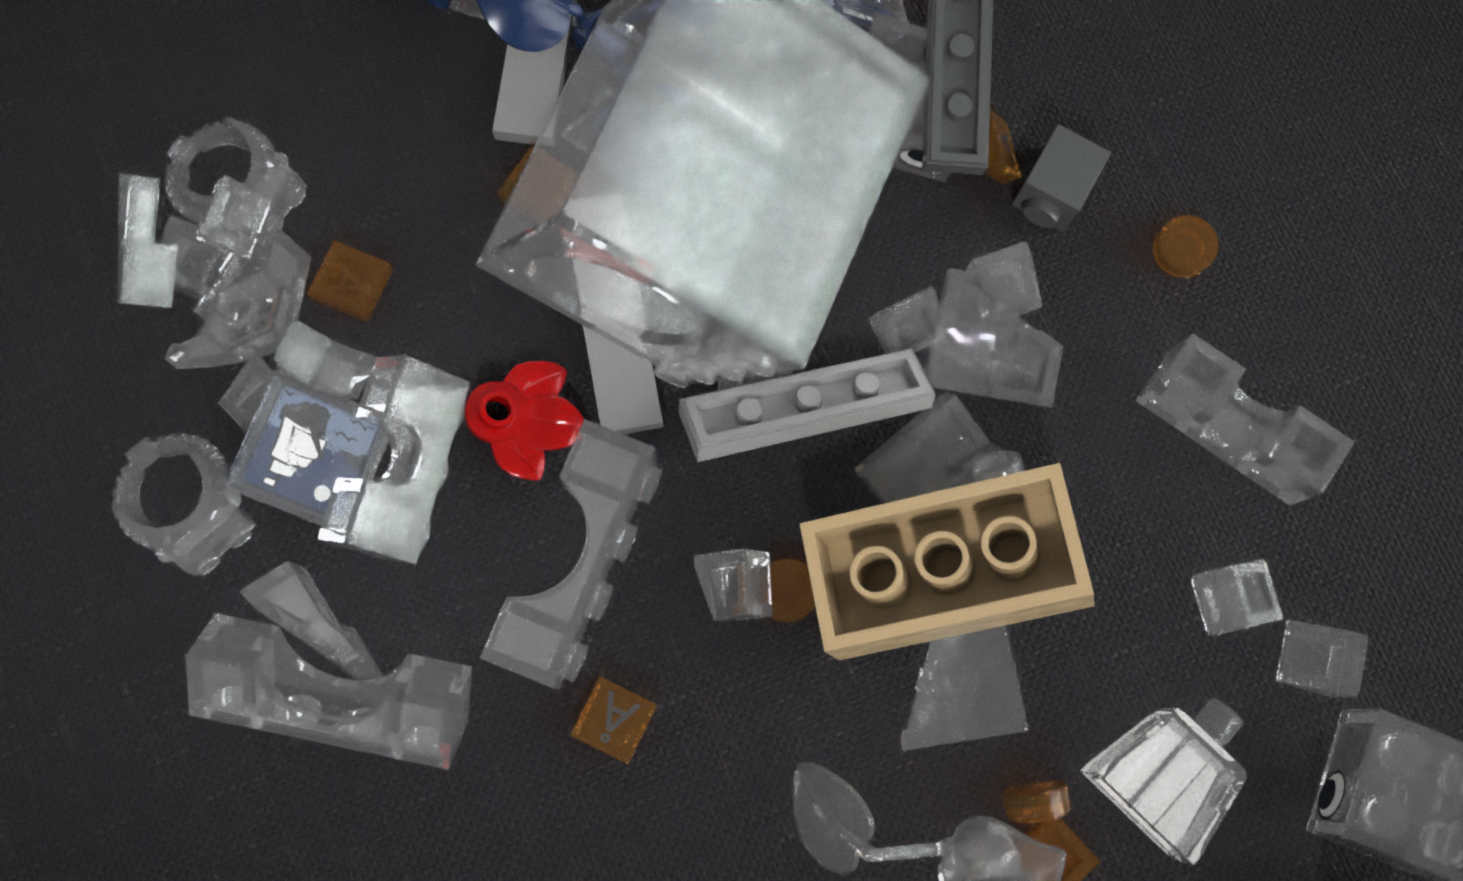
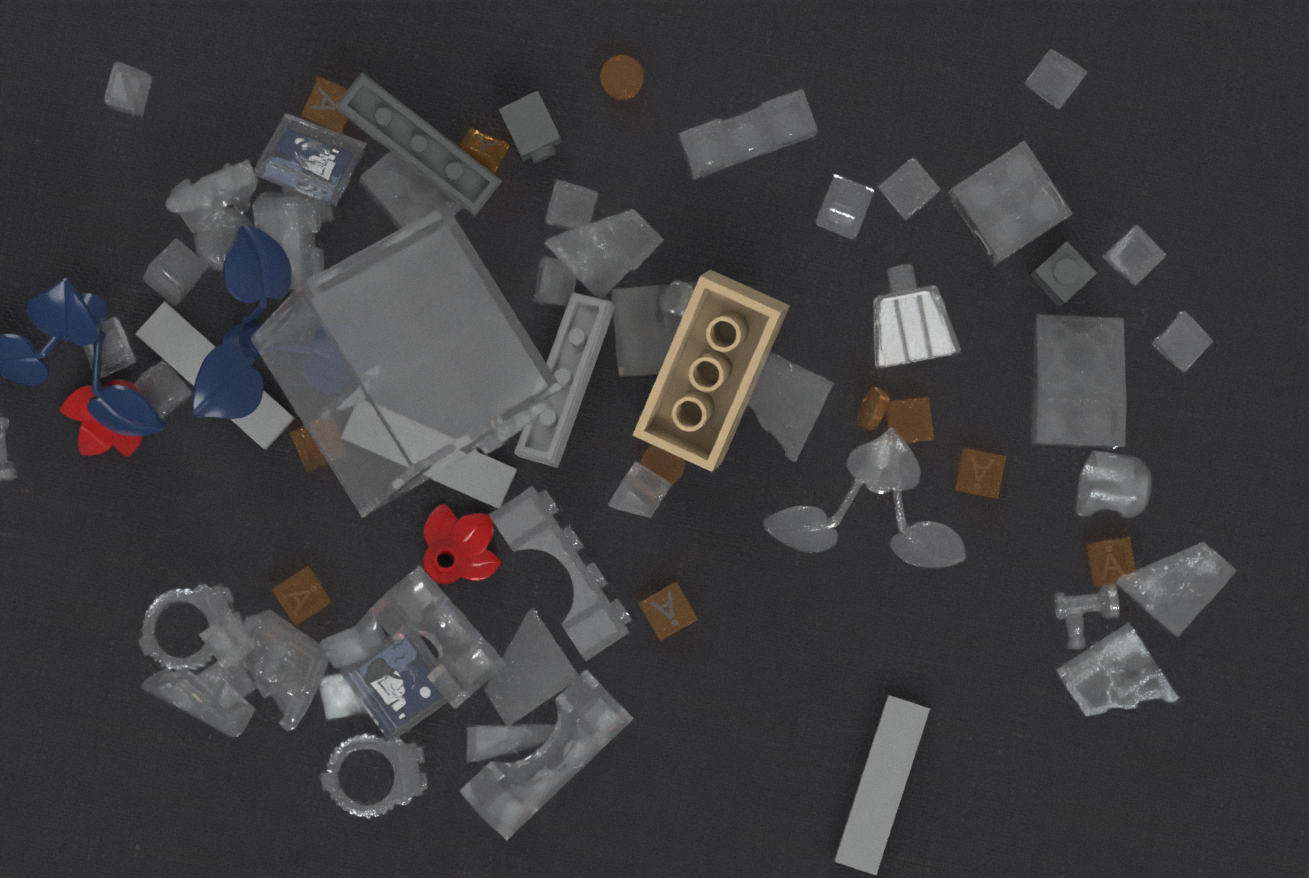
camera: 50 degrees left, 10 degrees up
(427, 603) = (532, 673): none -> clear slope

